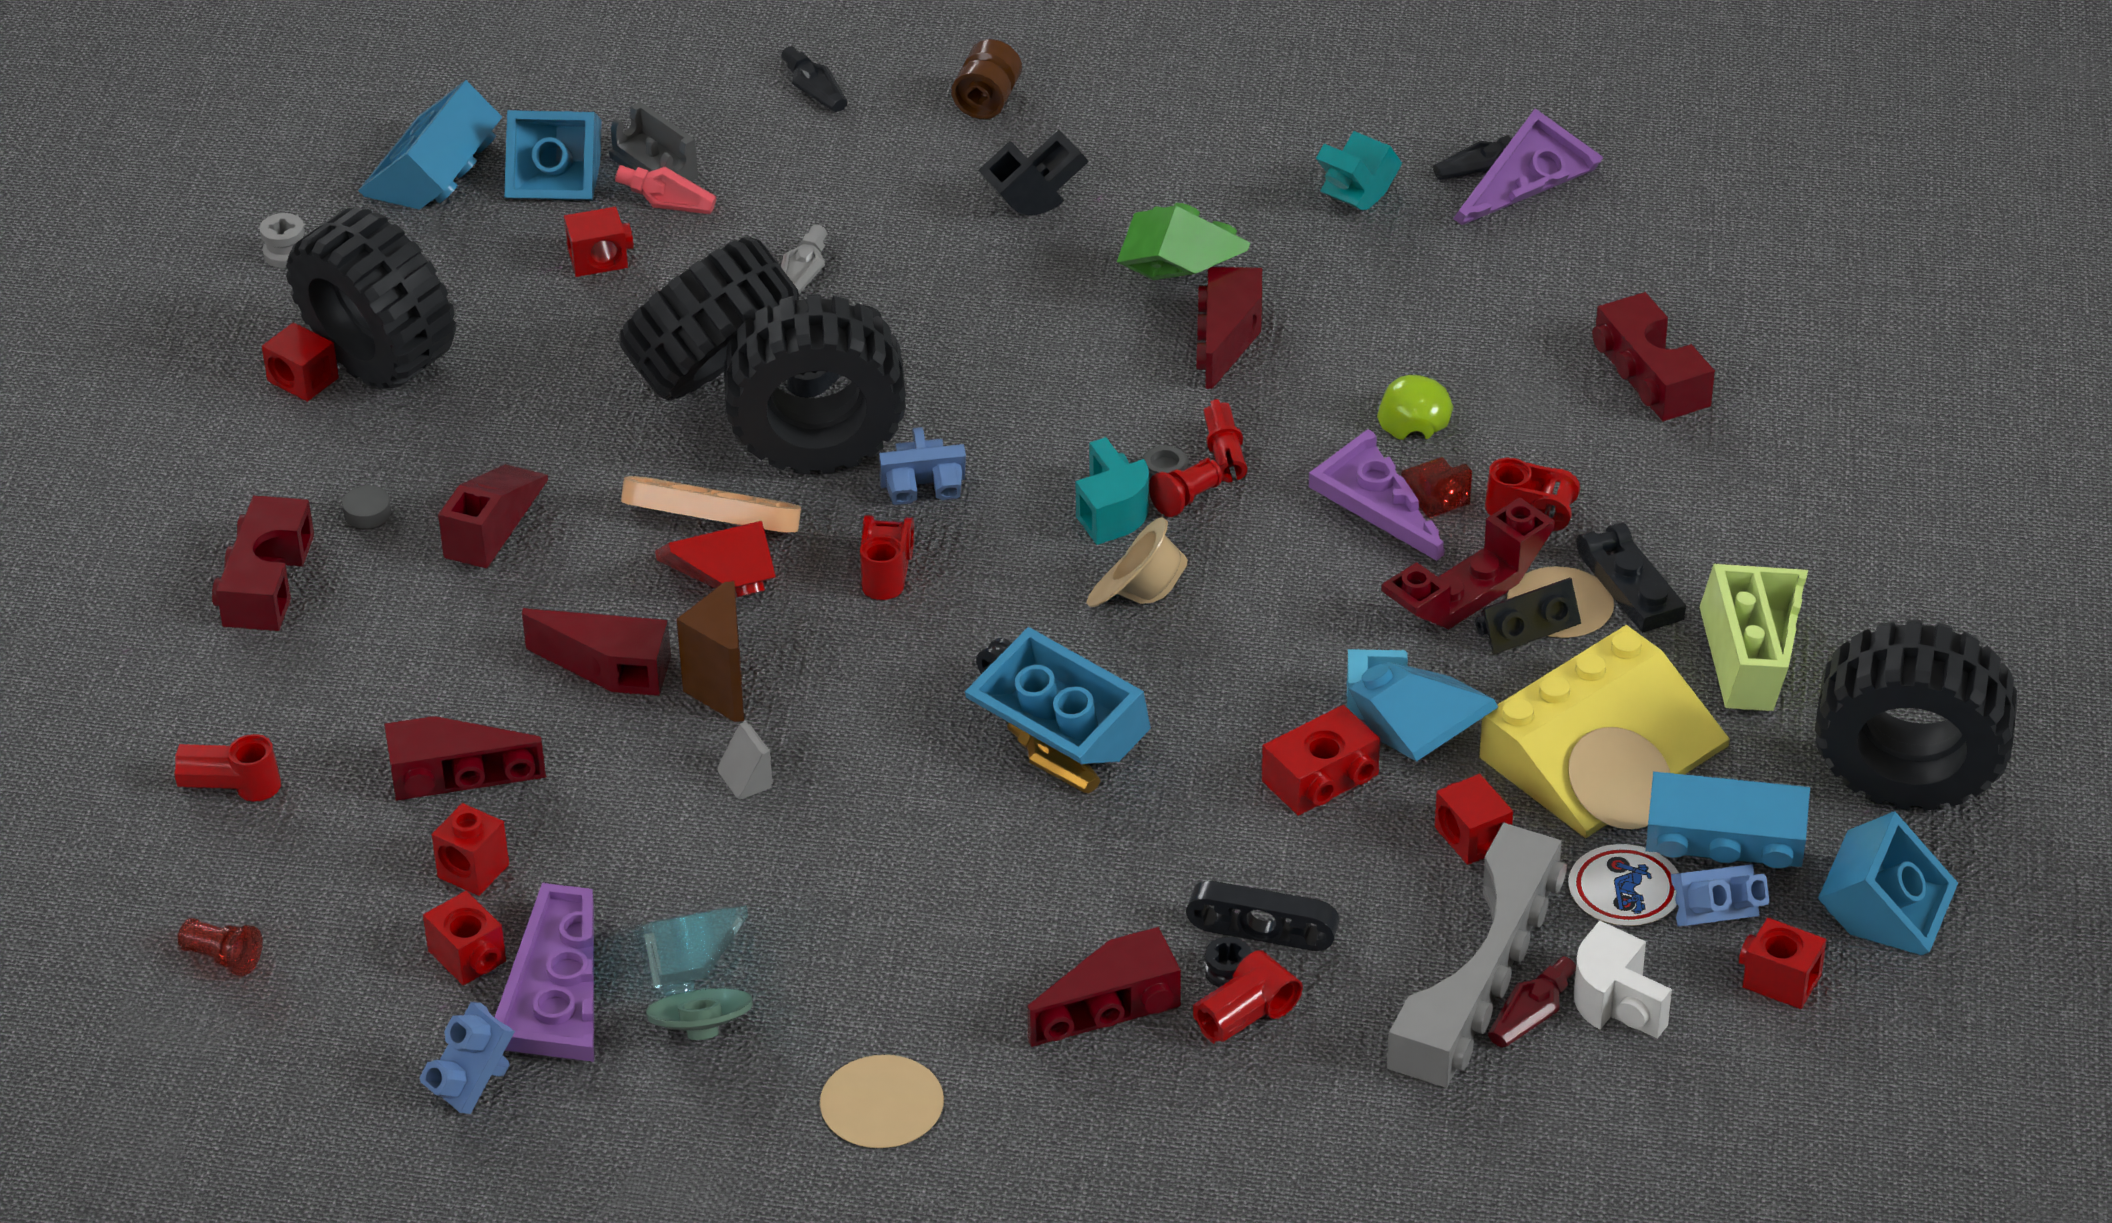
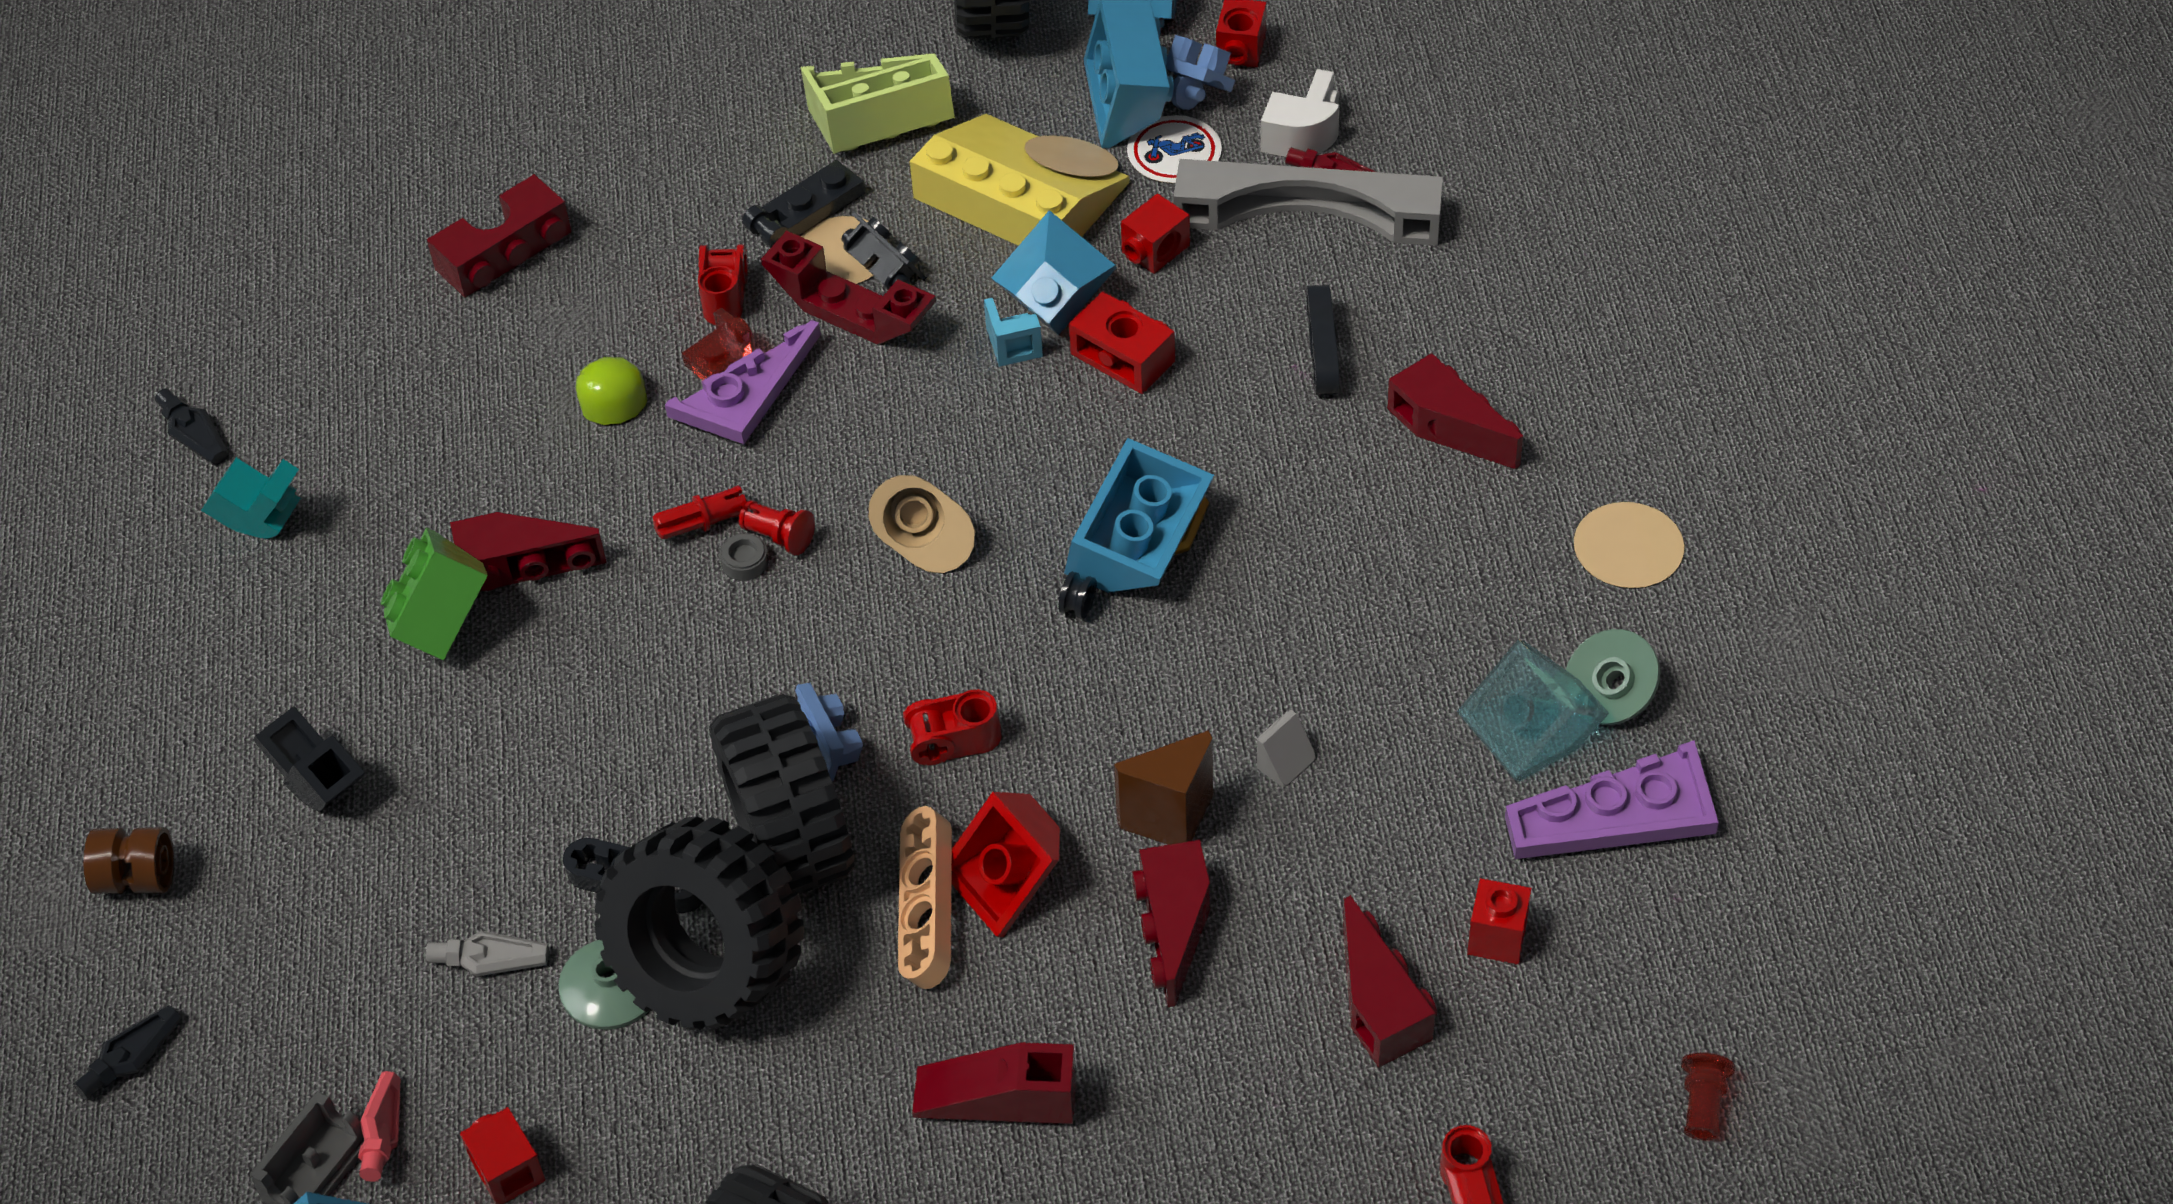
camera: 105 degrees left, 10 degrees up
(464, 937) = (1604, 905): red brick -> none
(471, 1057) = (1757, 814): medium blue hips -> none
(1115, 494) = (810, 564): teal brick -> none
(1226, 950) = (1369, 348): black bush -> none
(1256, 989) = (1408, 321): red piece -> none
(1532, 162) = (217, 382): medium lavender wing -> none

